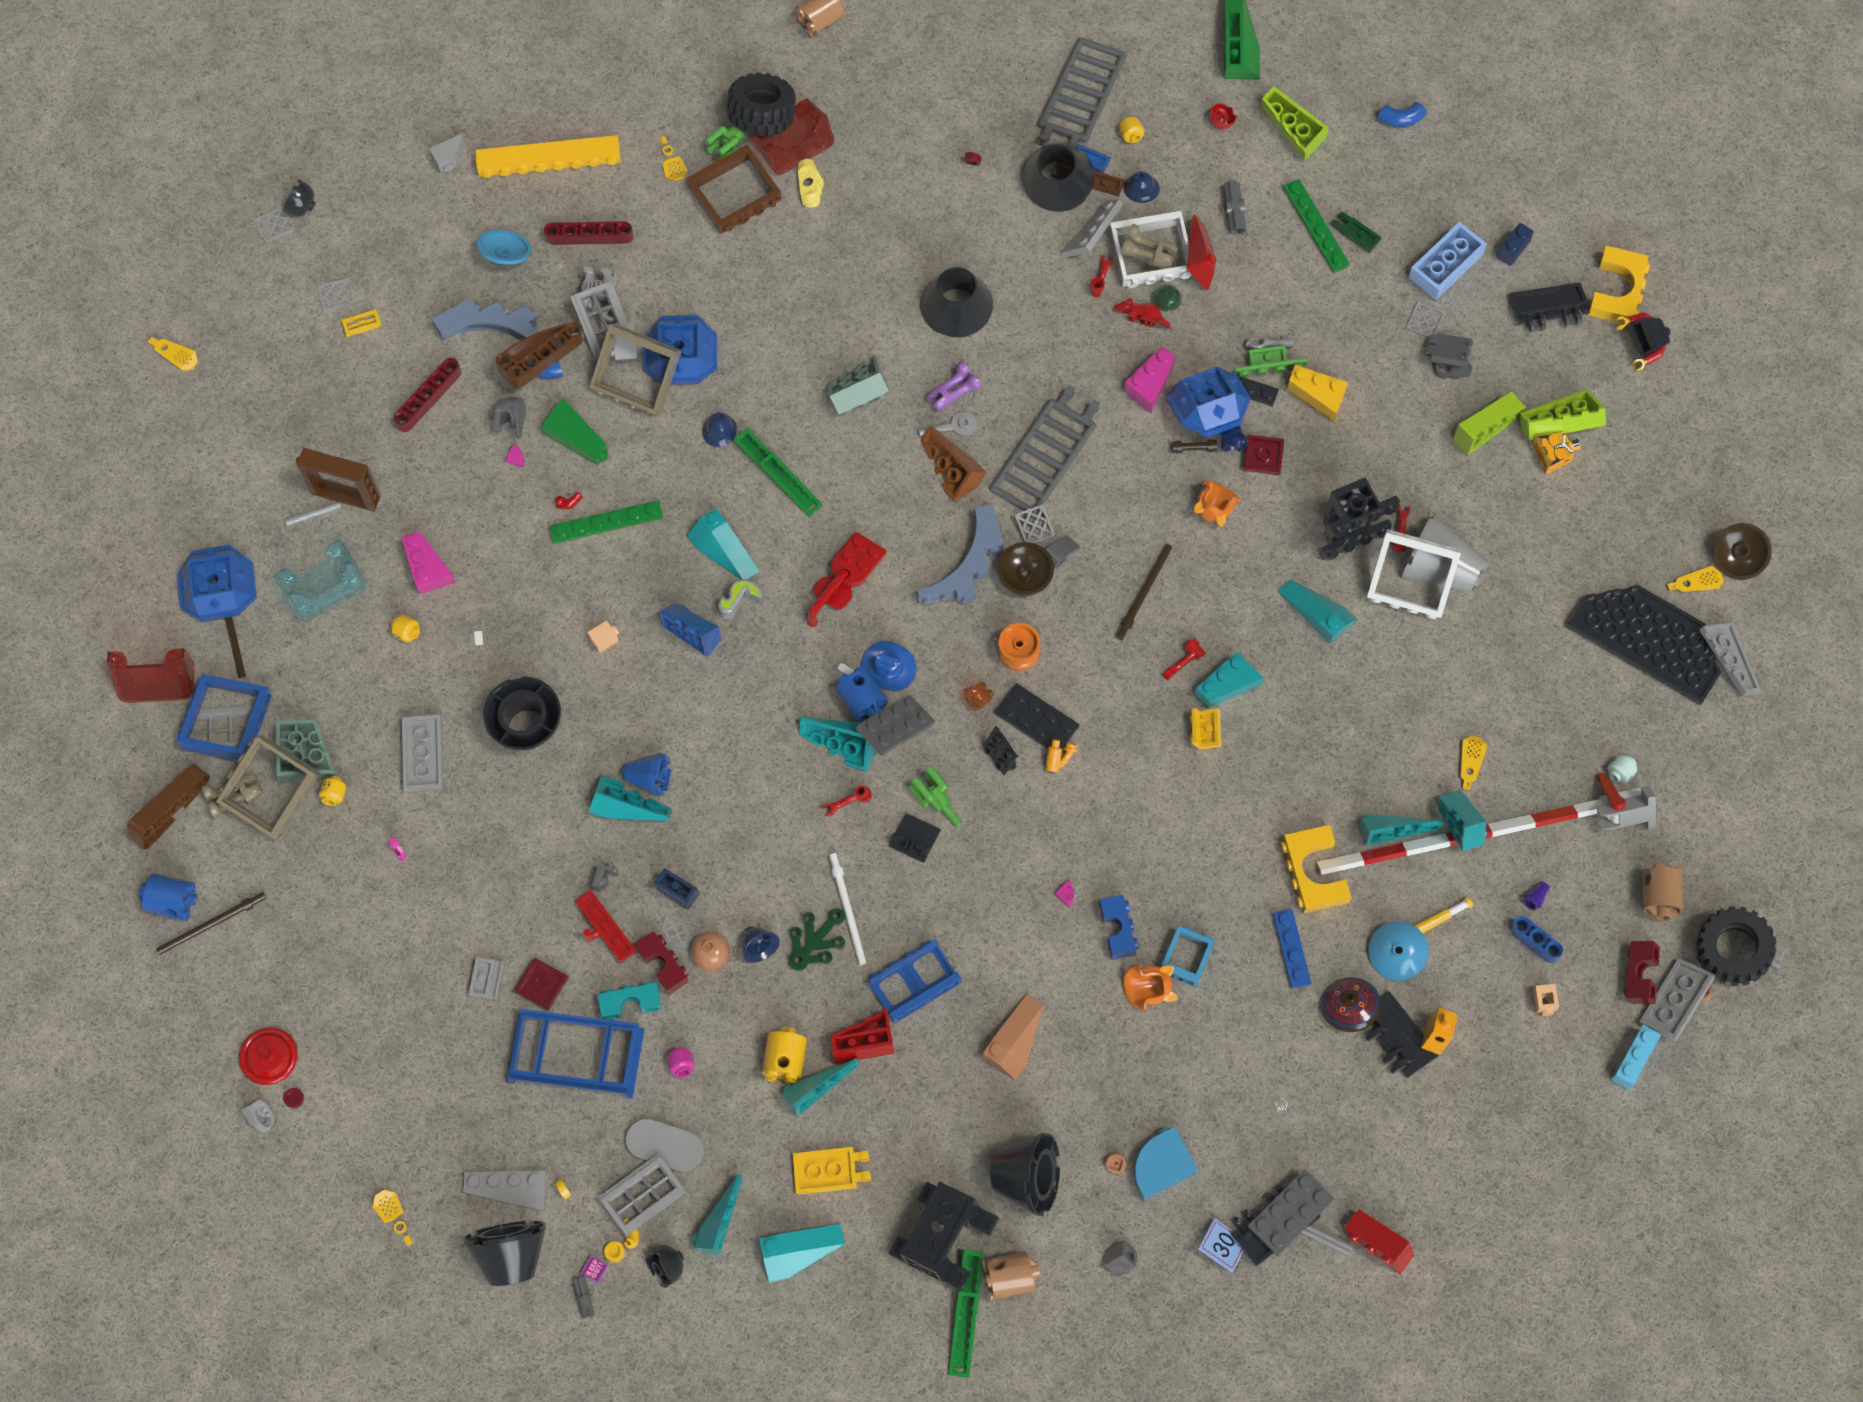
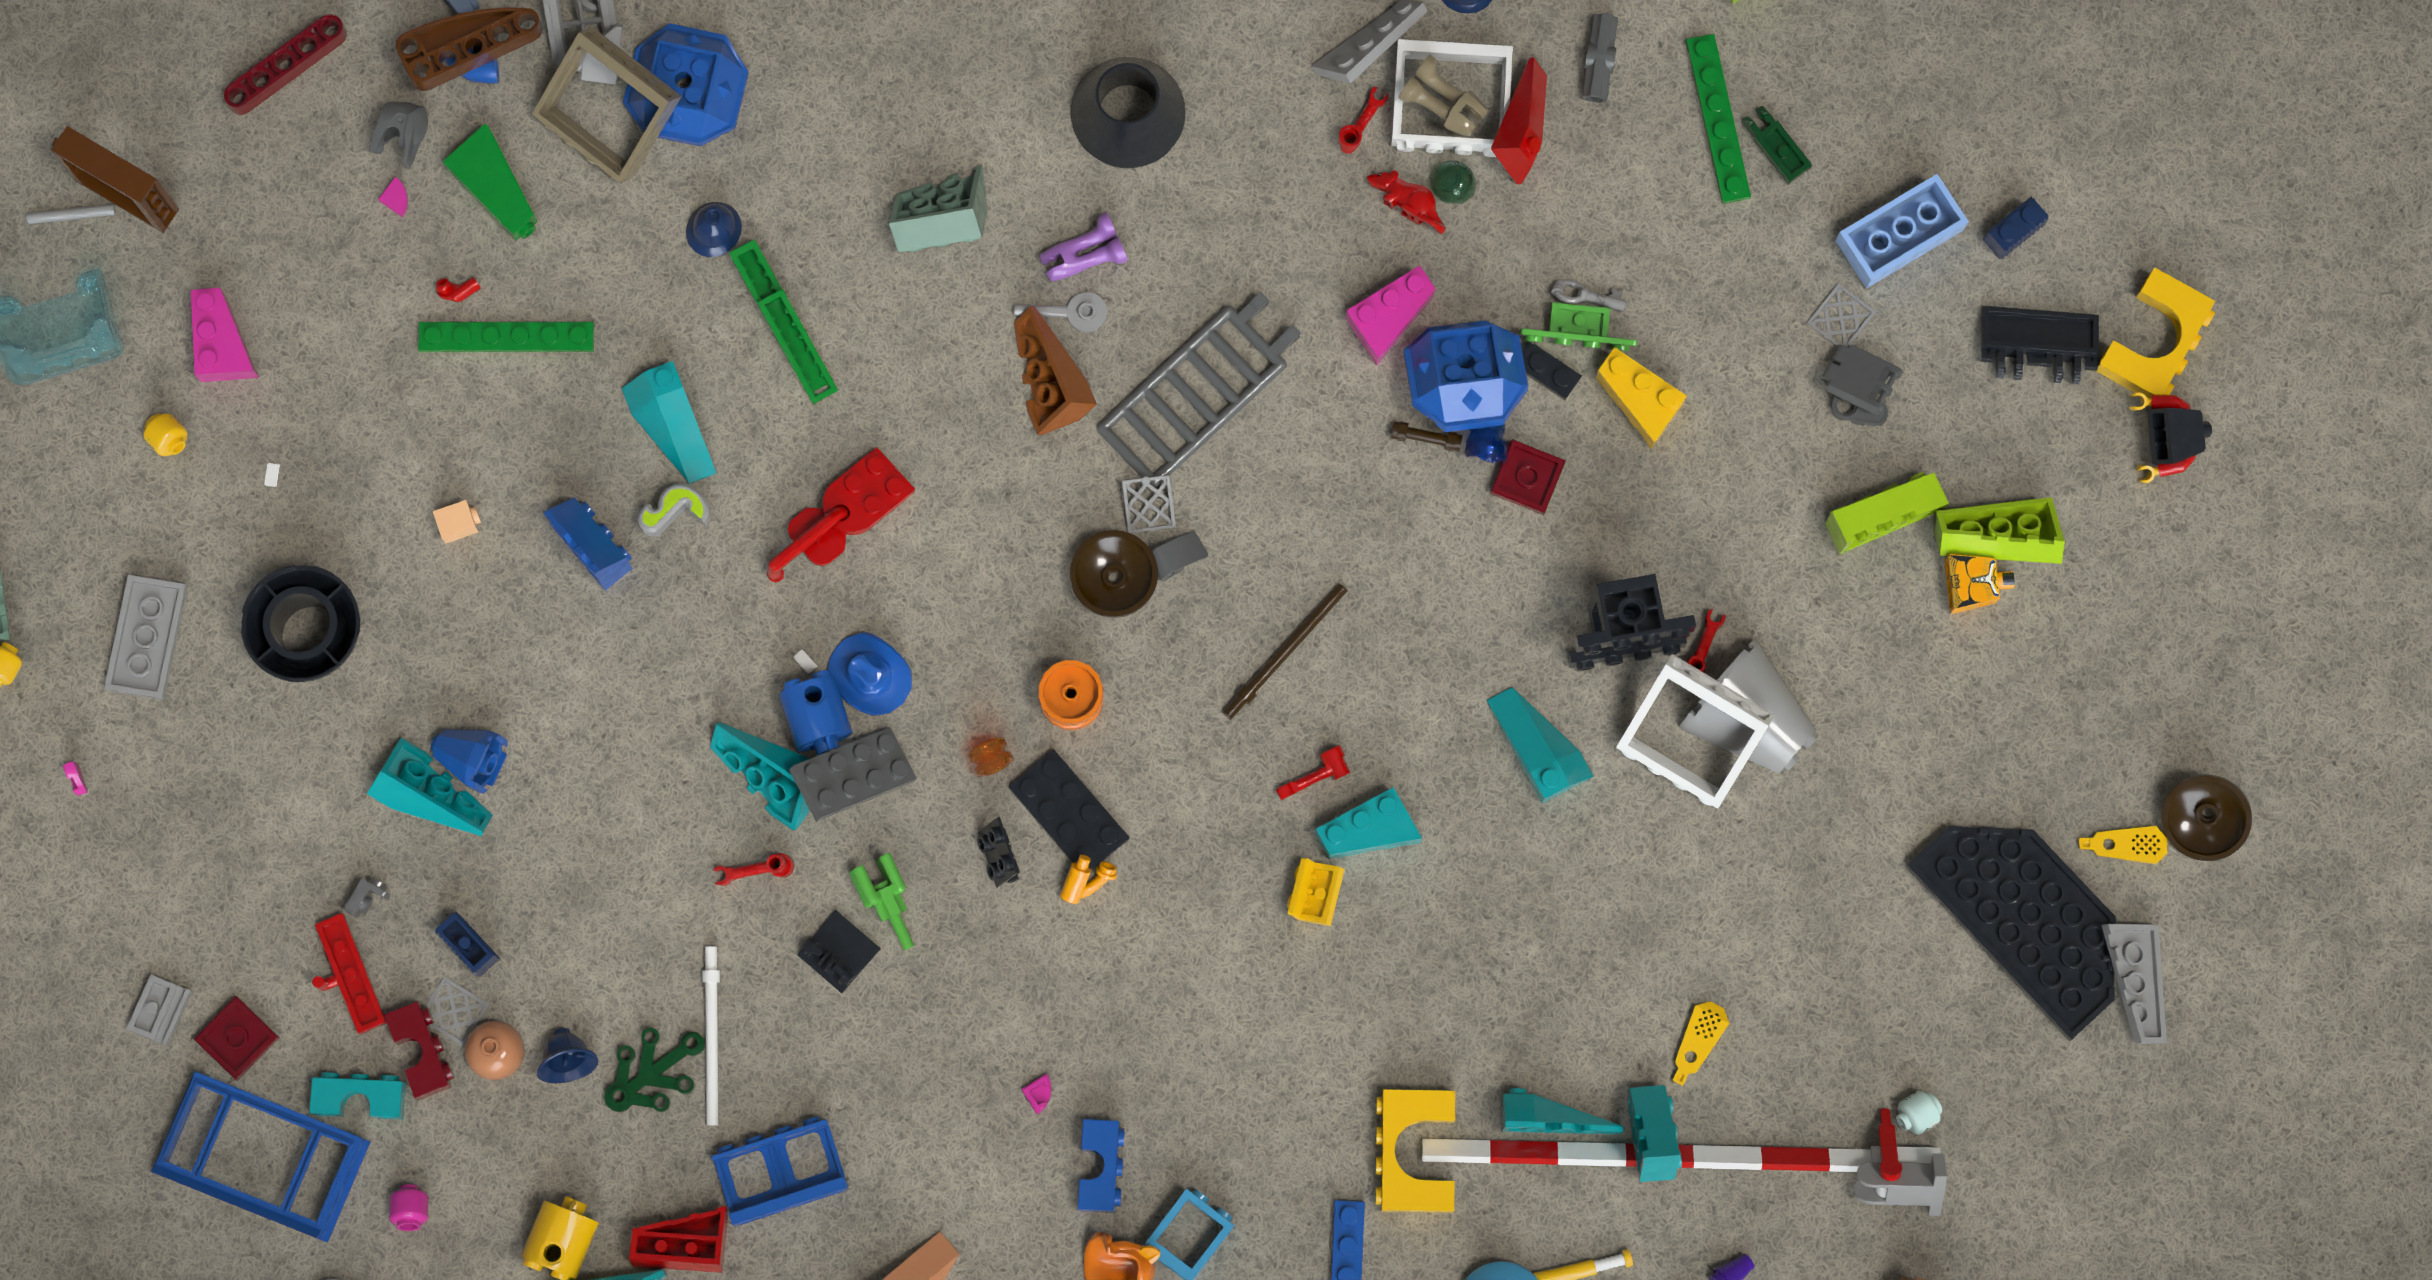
camera: 10 degrees right, 10 degrees up
(976, 565) = (1042, 546): sand blue arch -> none
(1215, 502) = (1432, 537): orange hair -> none

